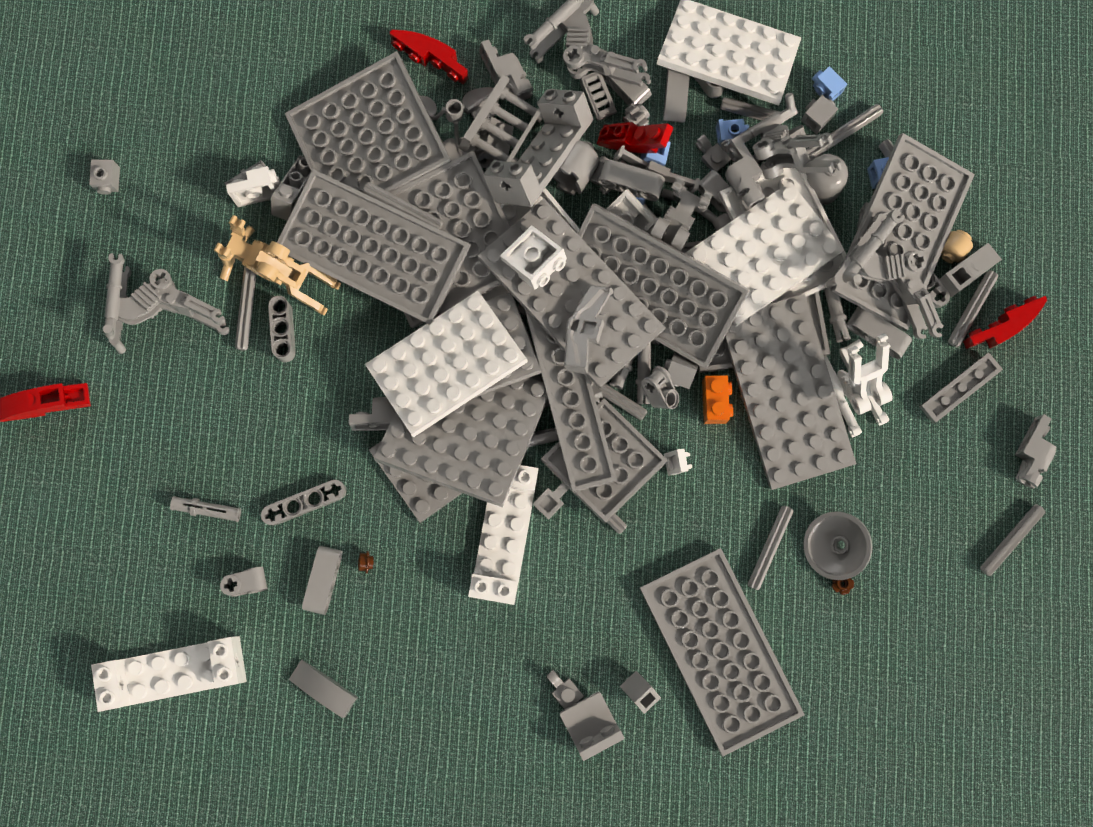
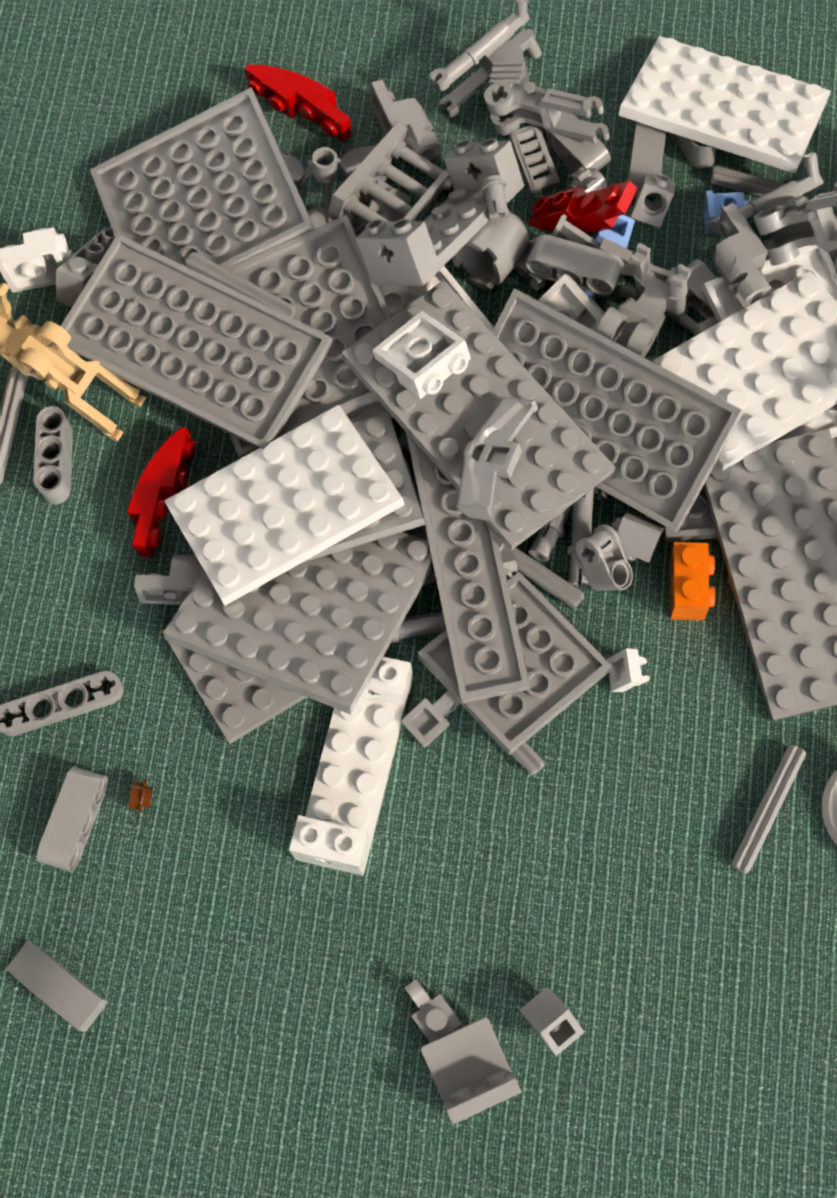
camera: 15 degrees right, 10 degrees down
(359, 343) = (160, 480): none -> red slope
(575, 134) = (493, 188): none -> light grey pin
(683, 134) = (648, 211): none -> light grey brick
(713, 156) = (696, 244): light grey plate -> none
(721, 652) = (687, 970): light grey plate -> none

